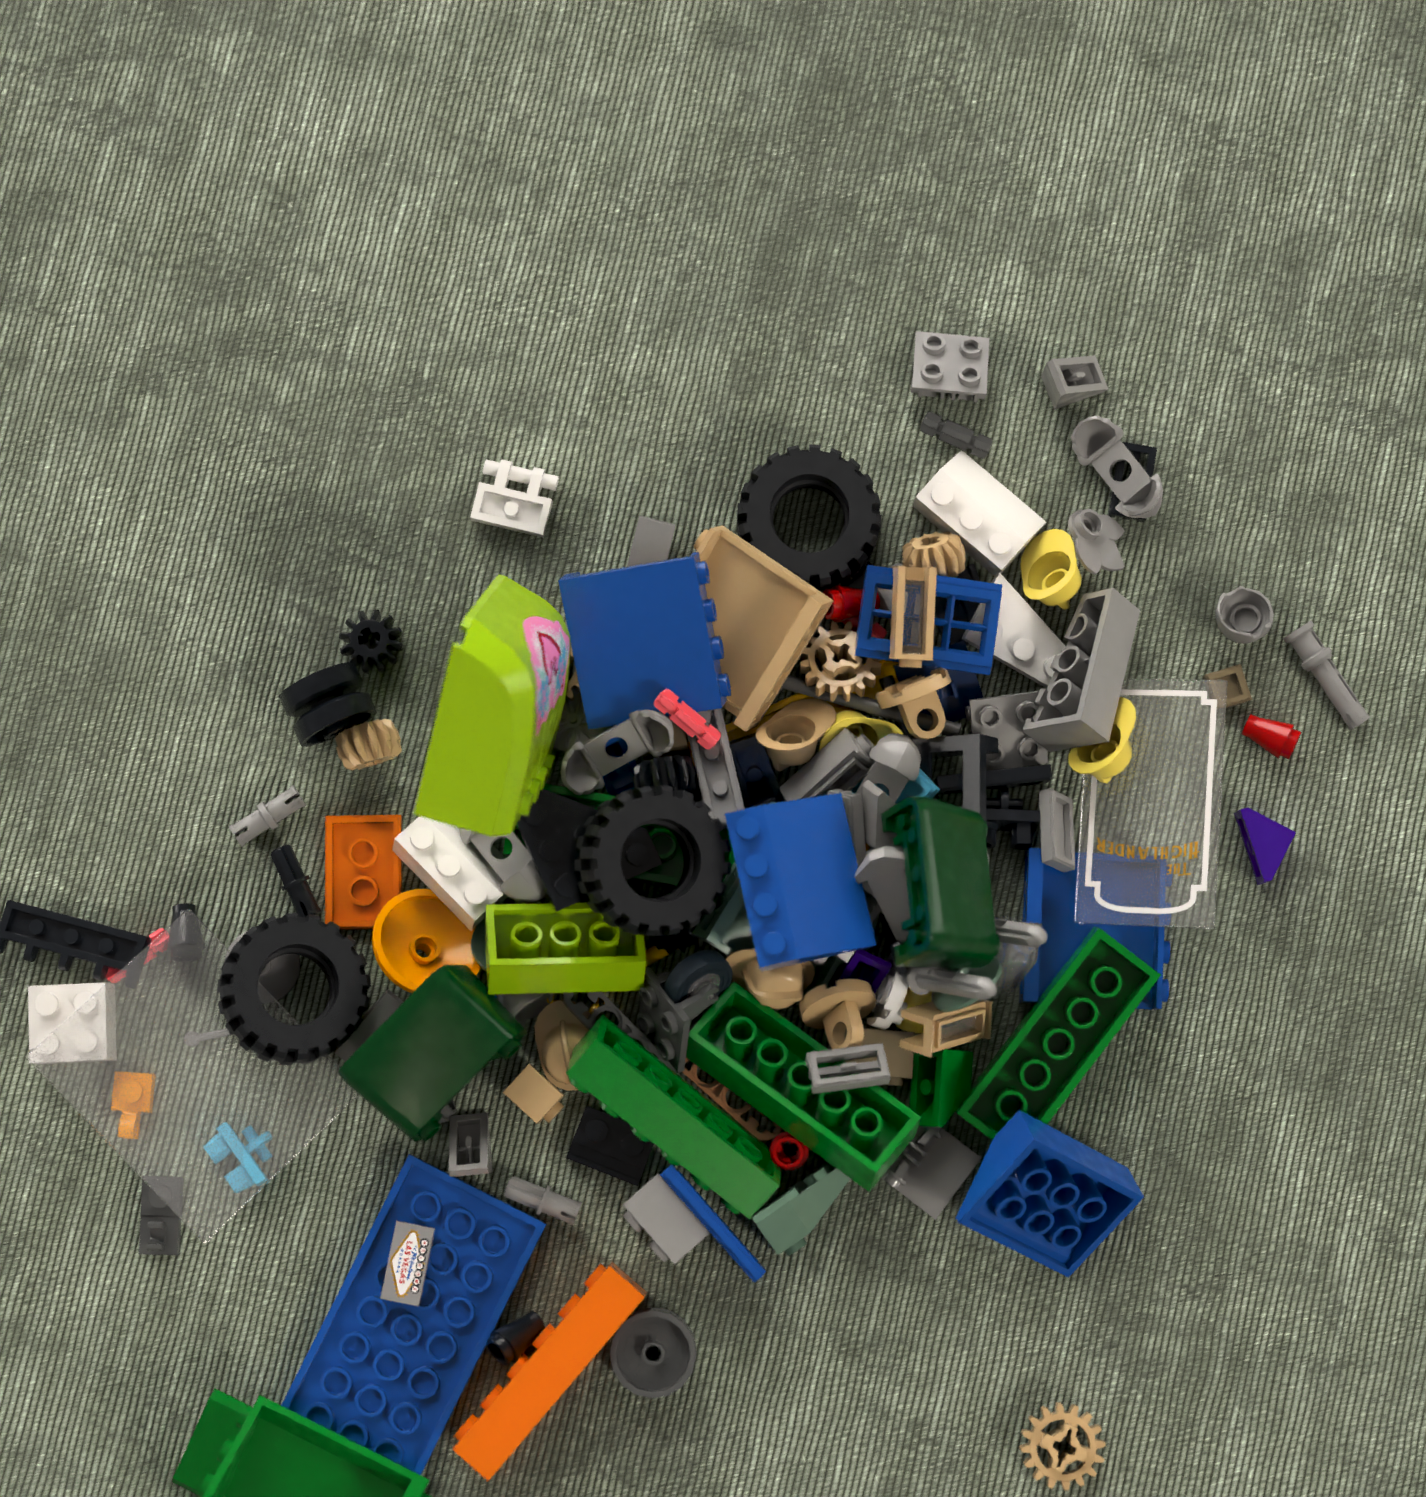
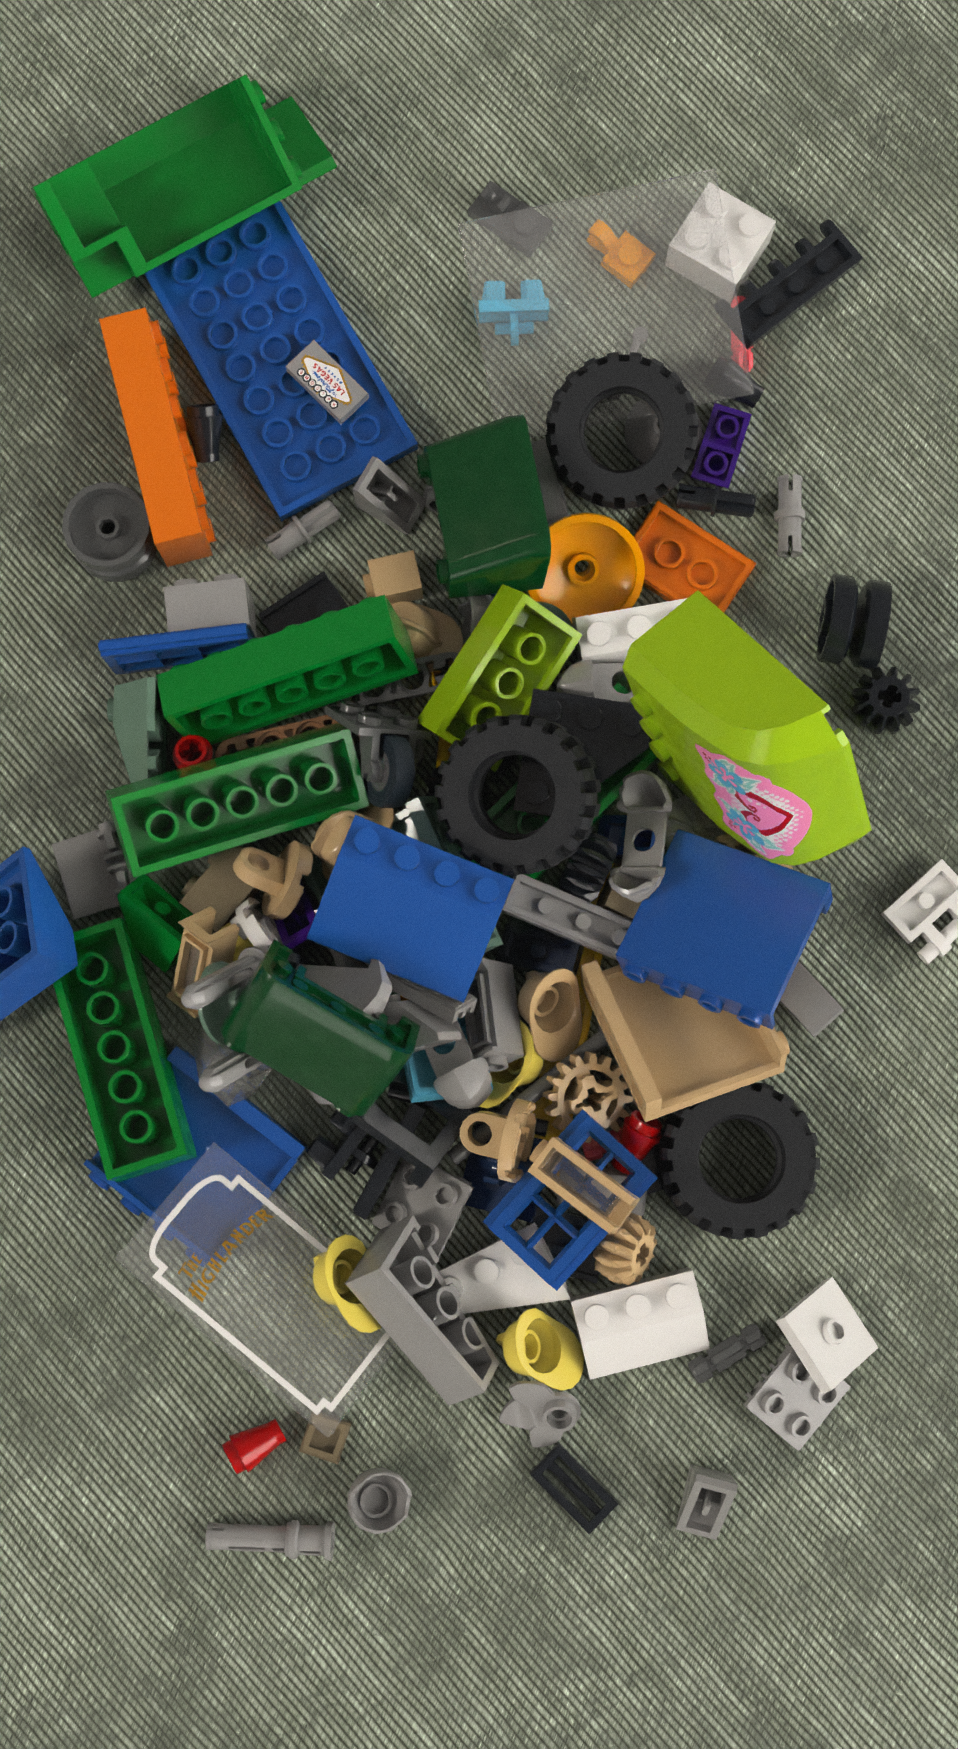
camera: 125 degrees right, 0 degrees up
(244, 908) = (721, 446): none -> dark purple slope
(368, 744) = (795, 634): tan gear -> none
(687, 719) = (626, 916): coral axle -> none
(851, 1081) = (207, 838): light grey tile -> none
(892, 370) = (827, 1335): none -> white plate
(1057, 830) = (304, 1184): light grey tile -> none
(1100, 444) = (627, 1482): light grey piece -> none
(1264, 842) = (162, 1366): dark purple slope -> none

